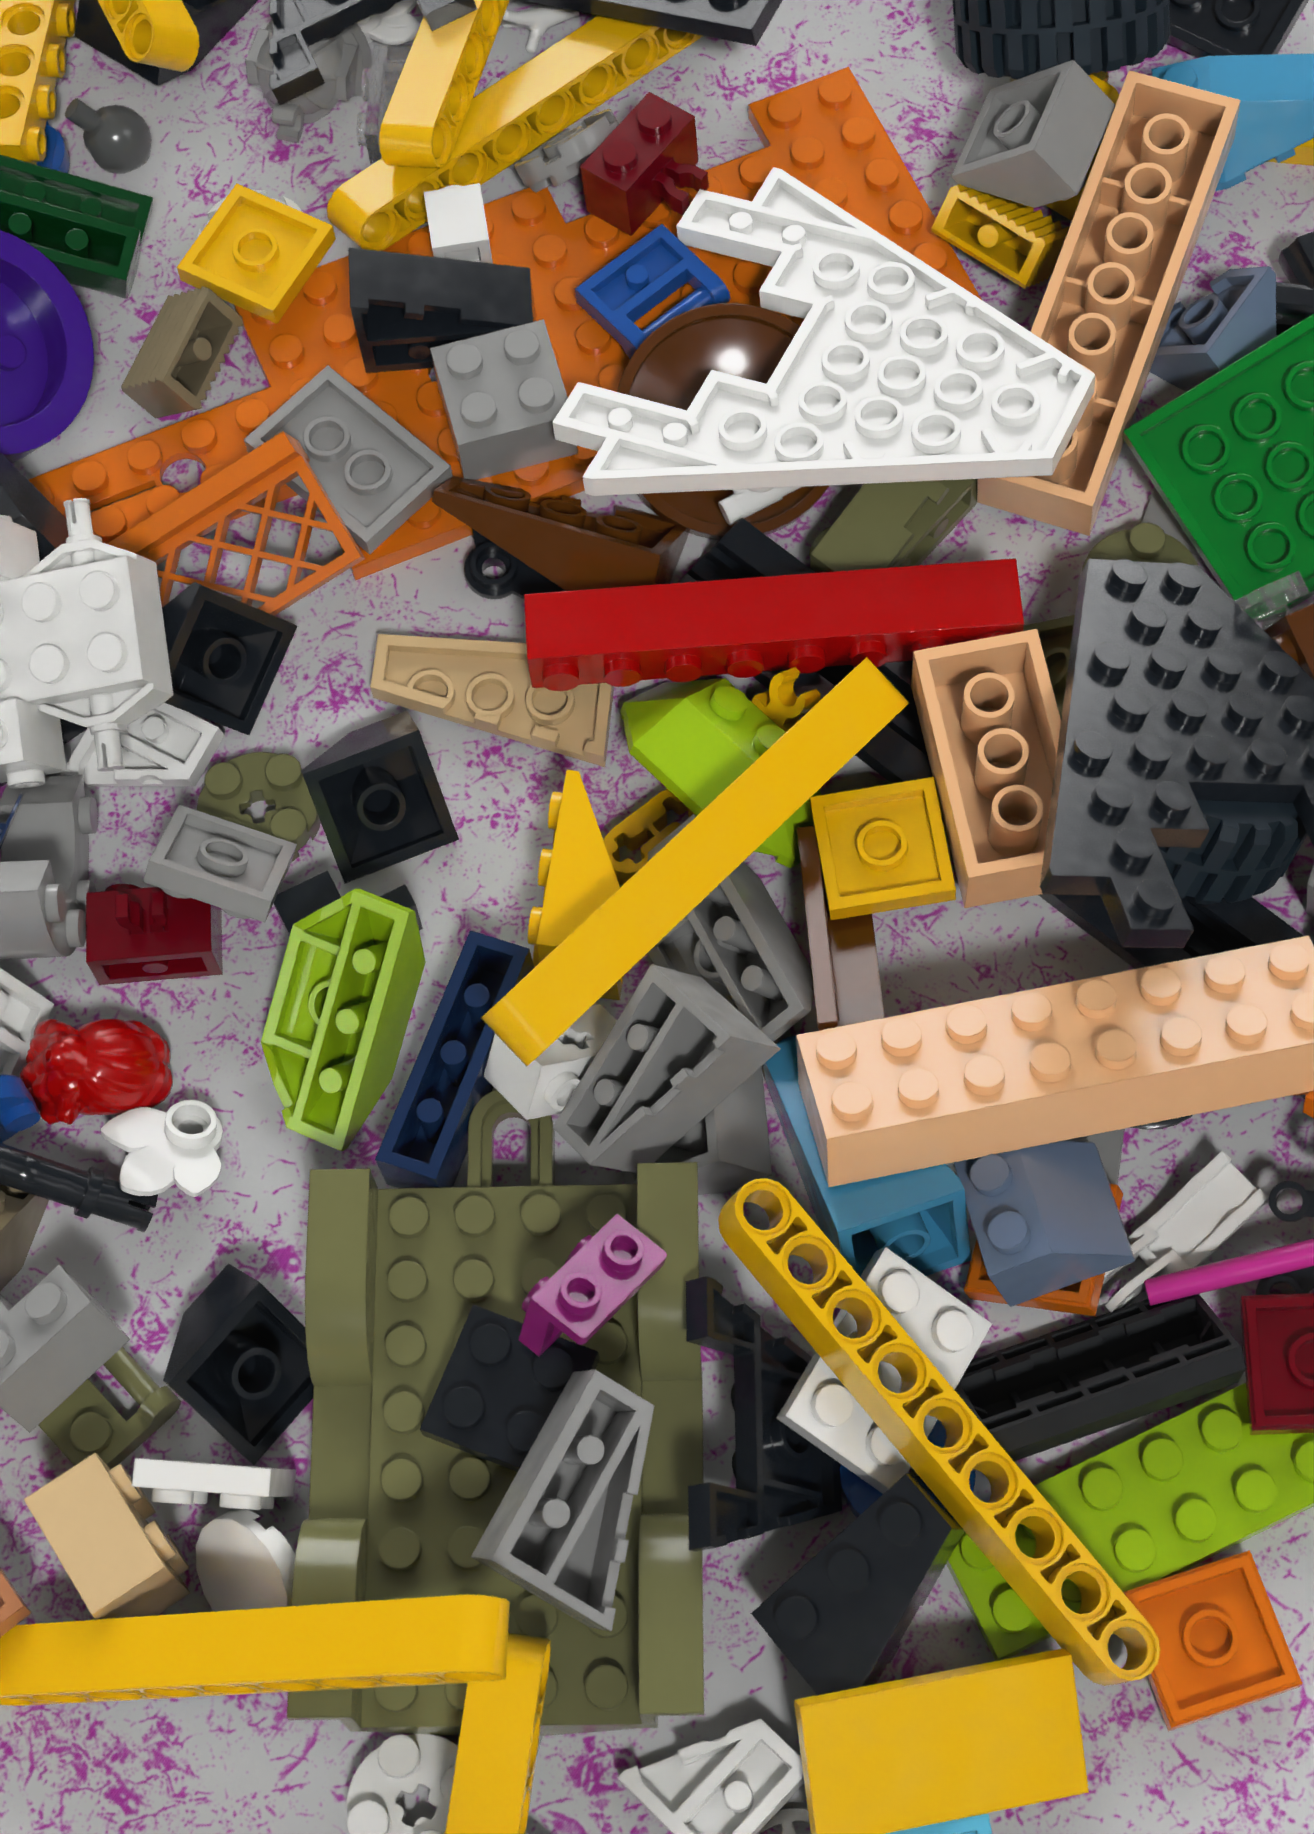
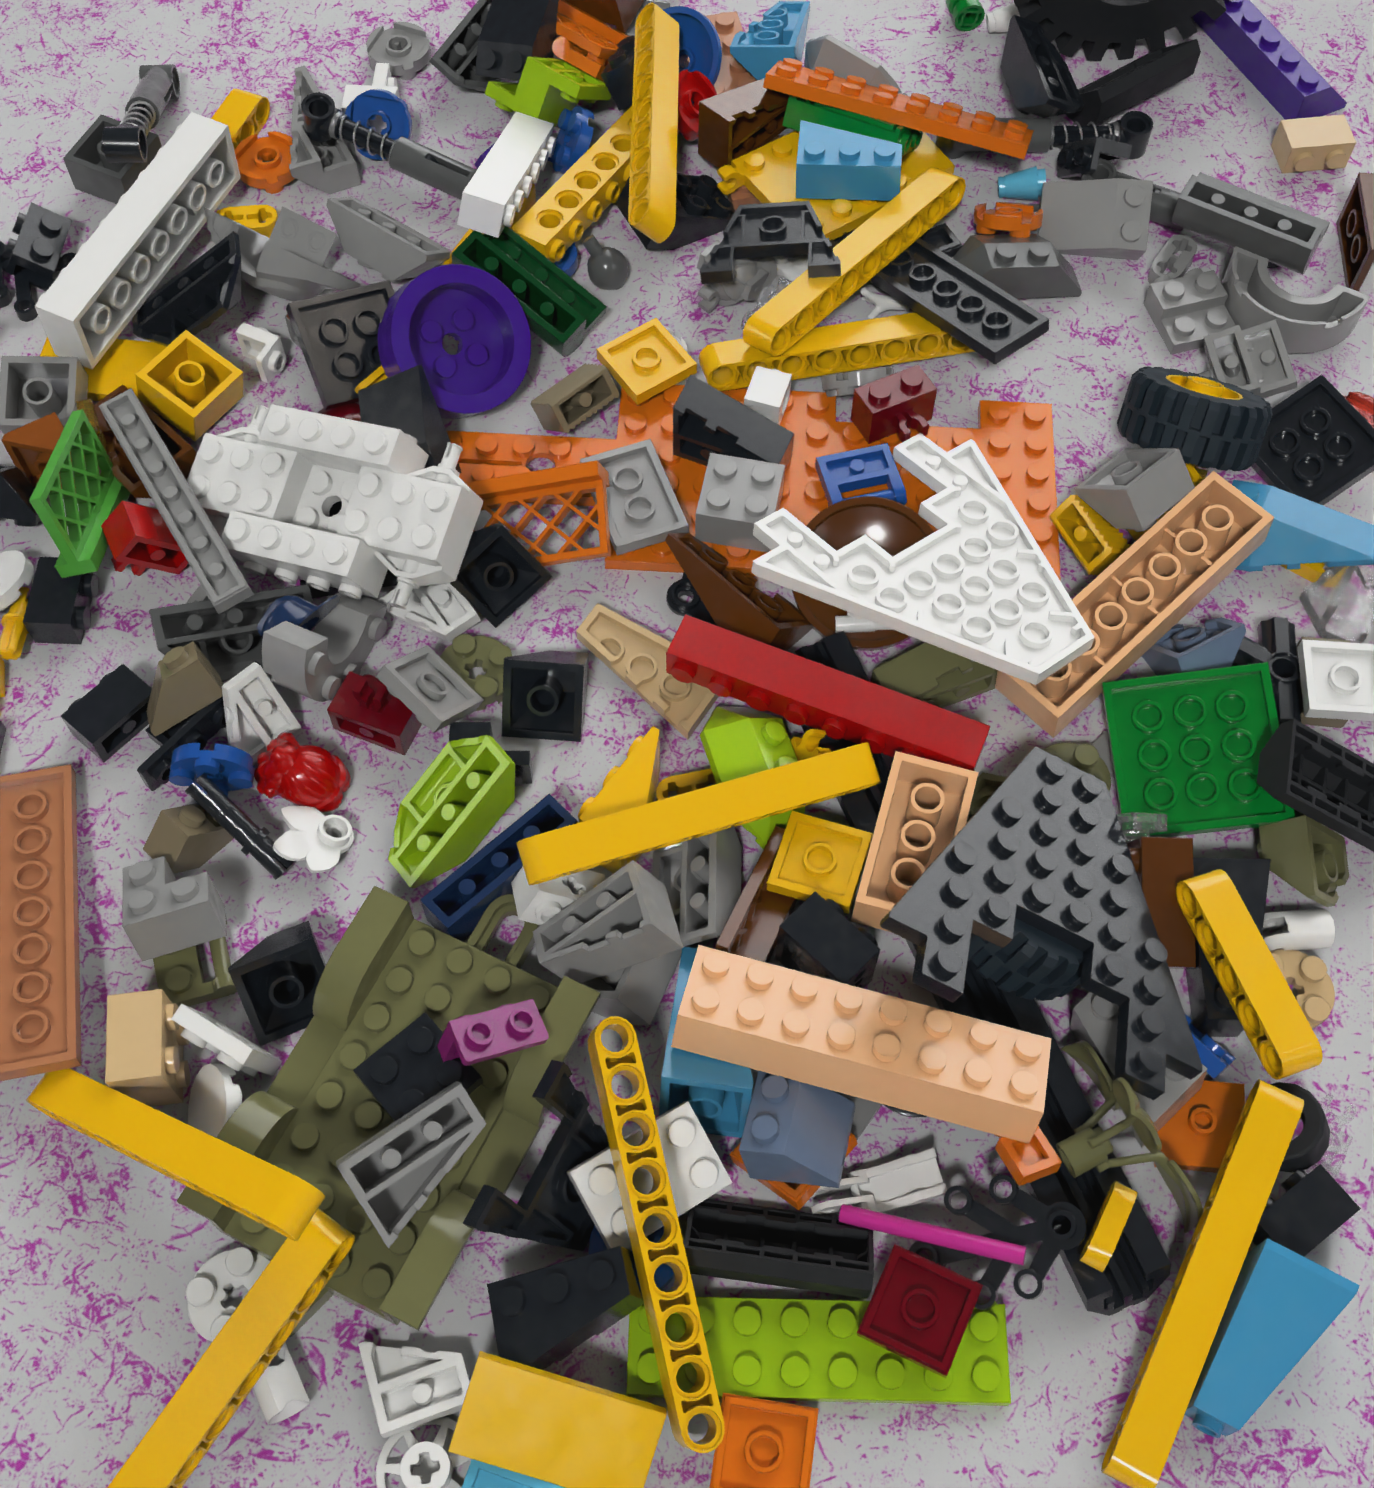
camera: 20 degrees right, 5 degrees down
(950, 954) = (826, 944): none -> black piece

